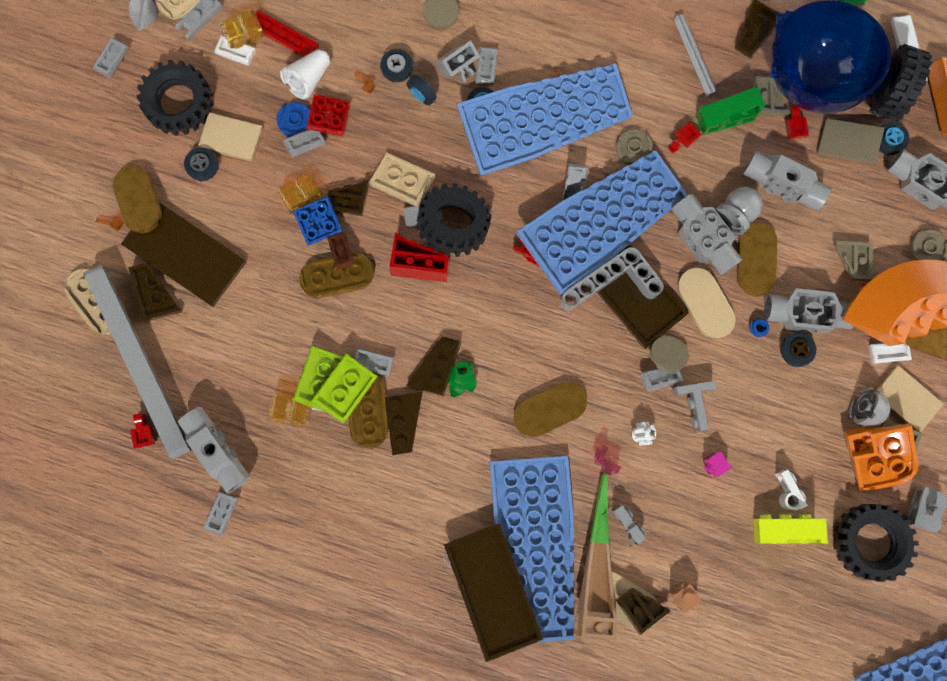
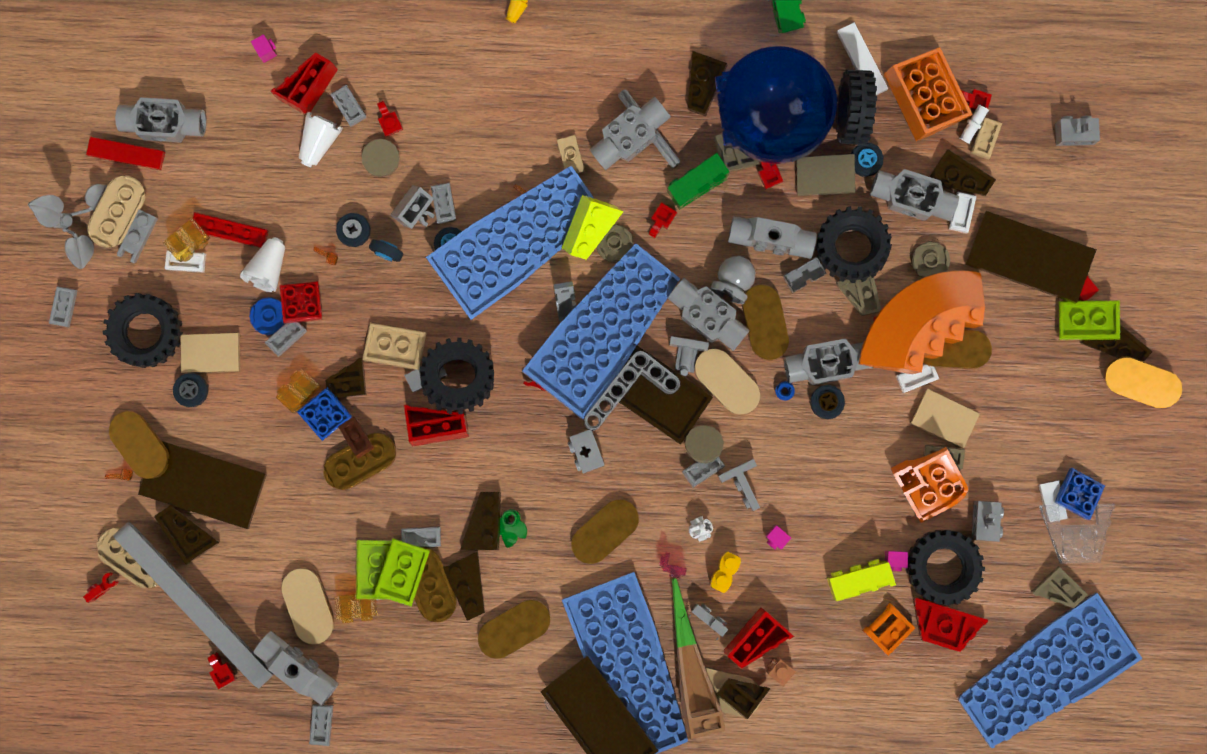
camera: 10 degrees left, 5 degrees up
(53, 321) = (97, 591): none -> red plate
(244, 395) = (307, 606): none -> tan tile
(435, 476) = (514, 629): none -> pearl gold tile
(558, 318) = (587, 440): none -> light grey brick
(616, 55) = (570, 153): none -> tan plate
(617, 121) = (589, 226): none -> neon yellow wedge
(654, 486) = (727, 566): none -> yellow brick
(670, 556) = (756, 638): none -> red wedge
(675, 264) = (687, 353): none -> light grey piece
(678, 50) = (630, 133): none -> light grey brick
(789, 485) = (849, 532): white plate -> none
(799, 226) = (810, 271): none -> light grey piece
(807, 593) = (893, 634): none -> orange plate
(832, 519) = (897, 559): none -> dark pink plate
(861, 601) = (946, 625): none -> red wing
(870, 408) = (909, 441): light grey cylinder -> none
(875, 193) = (857, 221): none -> black tyre

